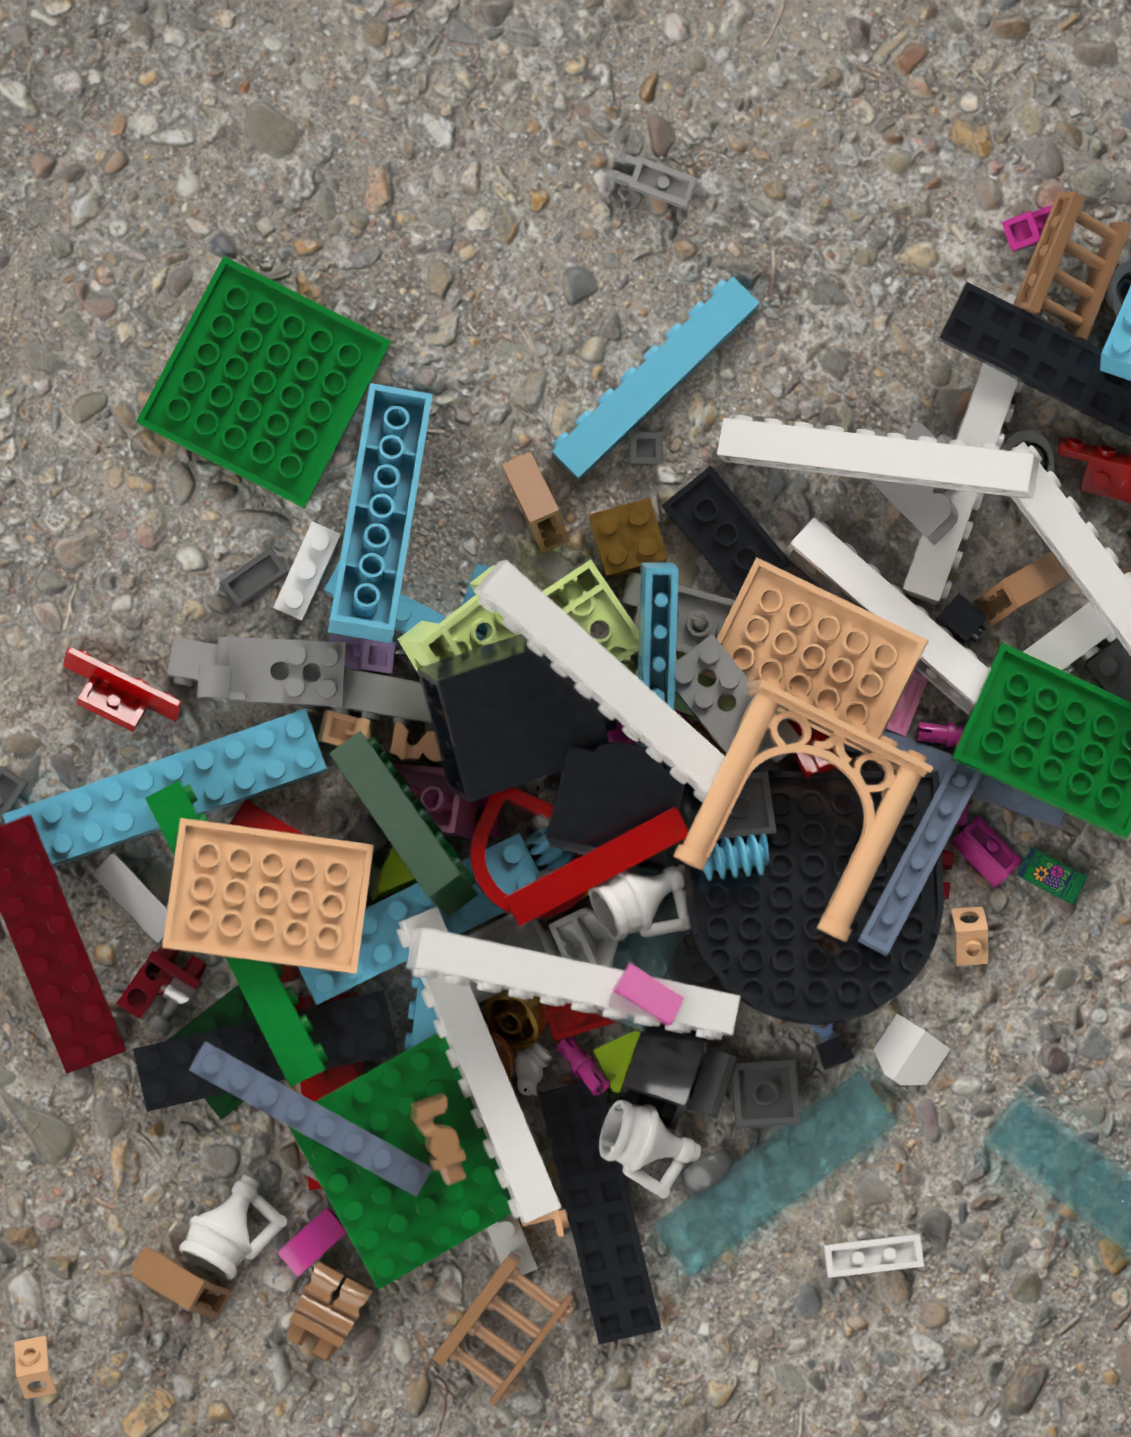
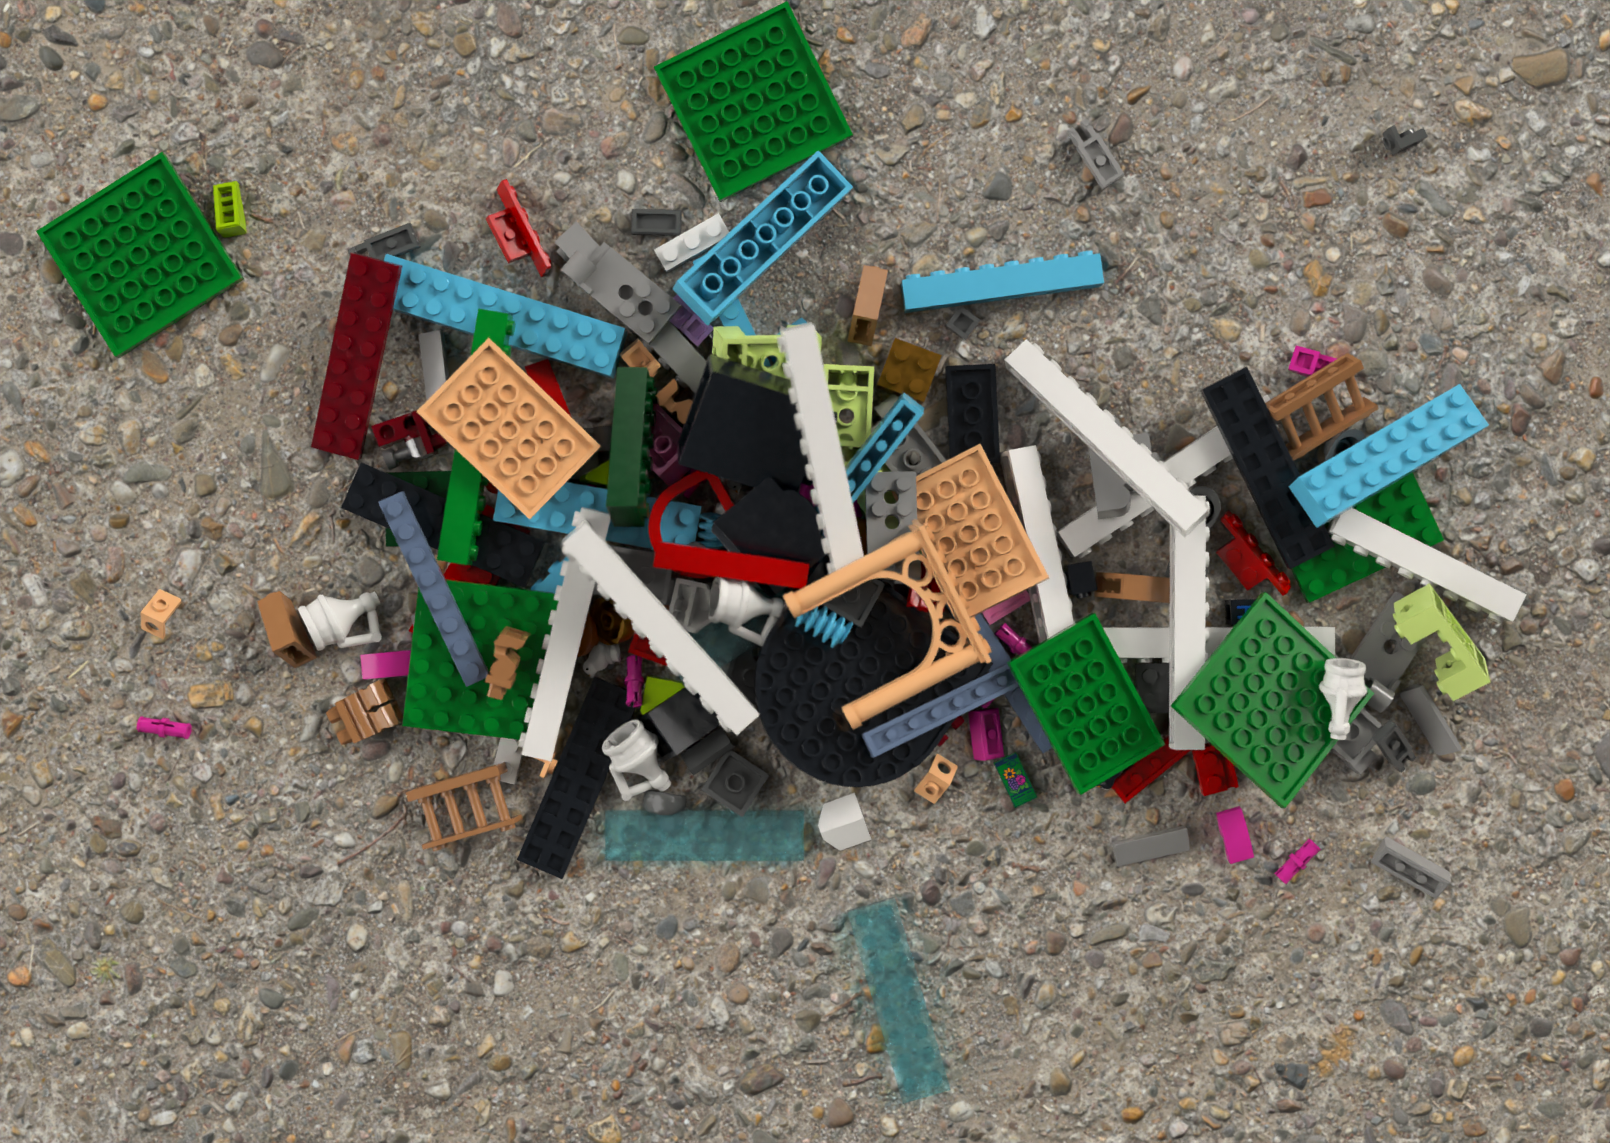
camera: 30 degrees right, 5 degrees up
(648, 994) = (700, 672): slope -> none
(831, 1051) = (795, 787): black piece -> none
(873, 1255) = (727, 931): white plate -> none

